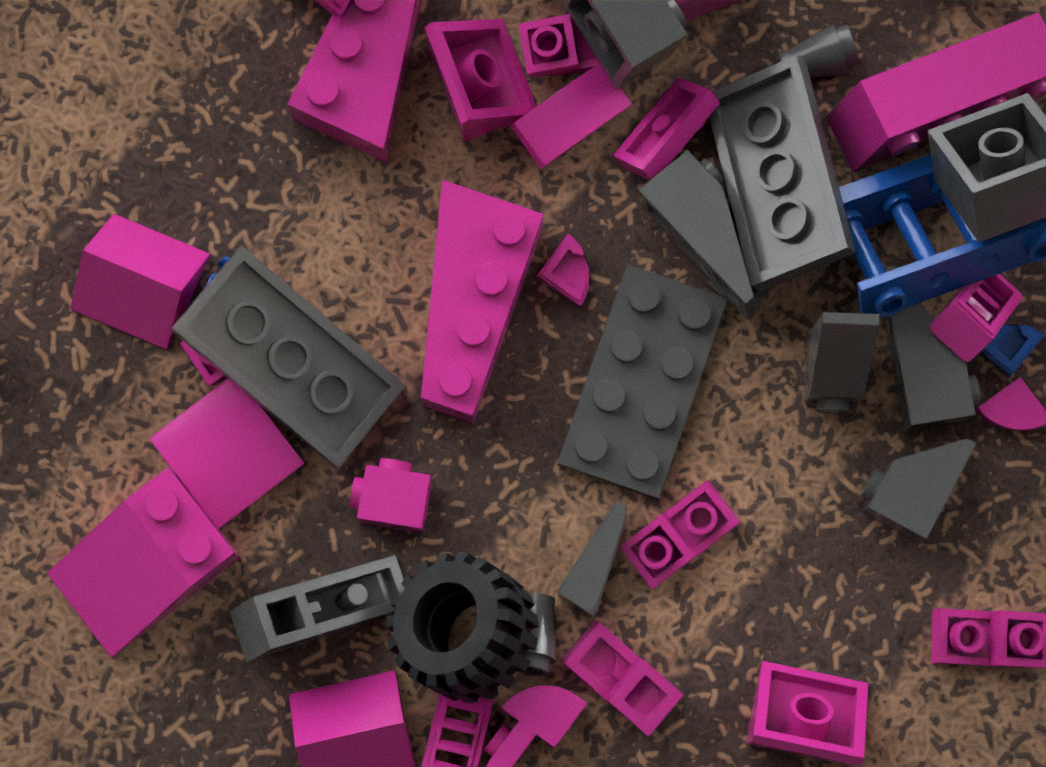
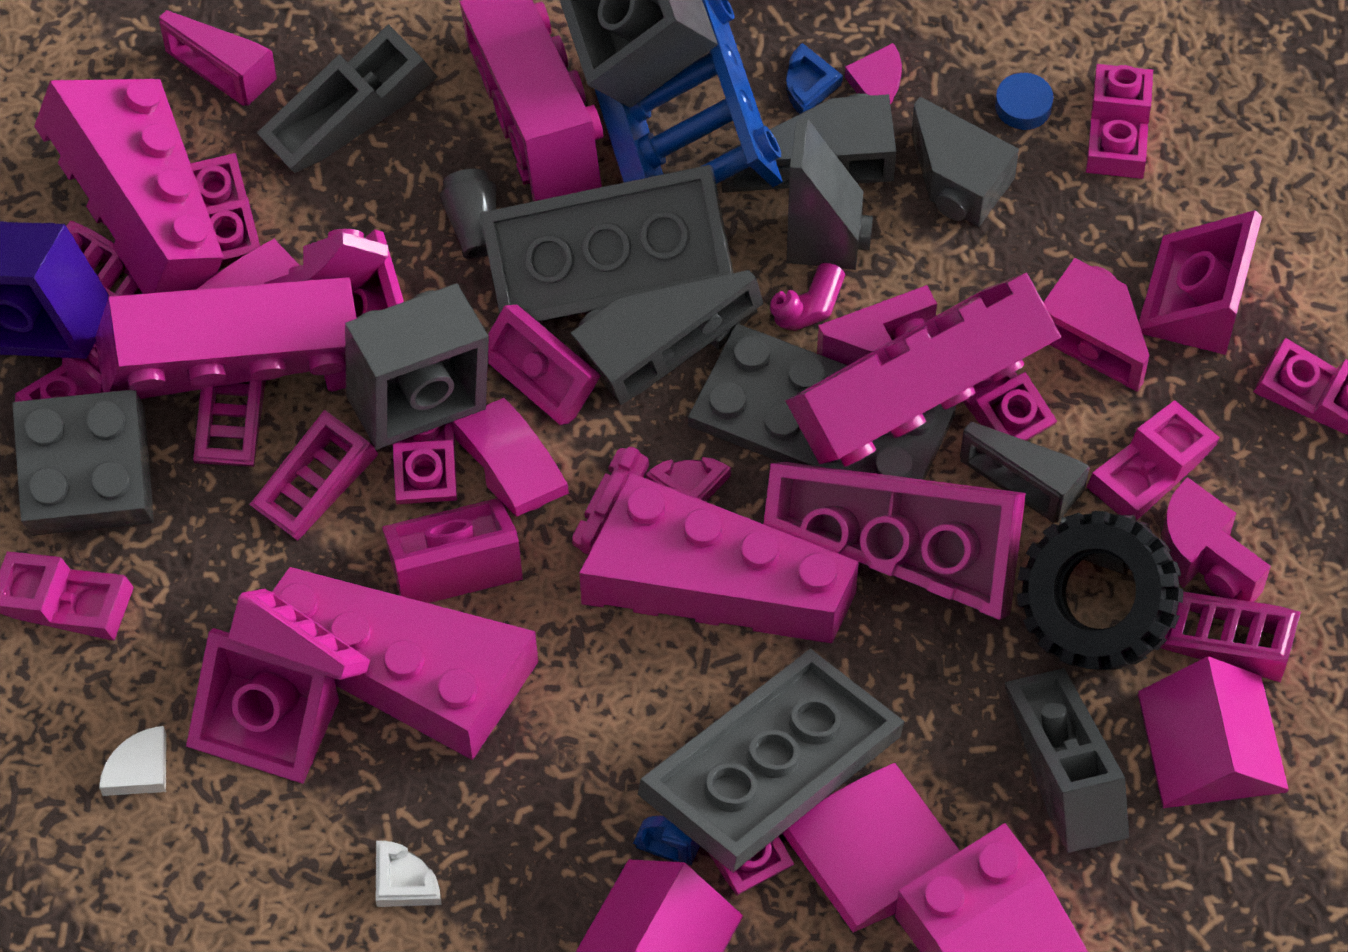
camera: 85 degrees left, 20 degrees down
(181, 76) = (403, 878): none -> white tile
(392, 496) = (940, 668): dark pink brick -> none
(531, 441) = (938, 530): none -> dark pink wedge
(573, 217) = (622, 465): none -> dark pink axle
(661, 456) = (923, 369): none -> dark pink wedge
(716, 412) = (874, 326): none -> dark pink slope
(755, 363) = (803, 310): none -> dark pink arm
(758, 618) = (1098, 323): none -> dark pink slope
(975, 315) = (787, 87): dark pink slope -> none
(1003, 547) = (1024, 101): none -> blue tile

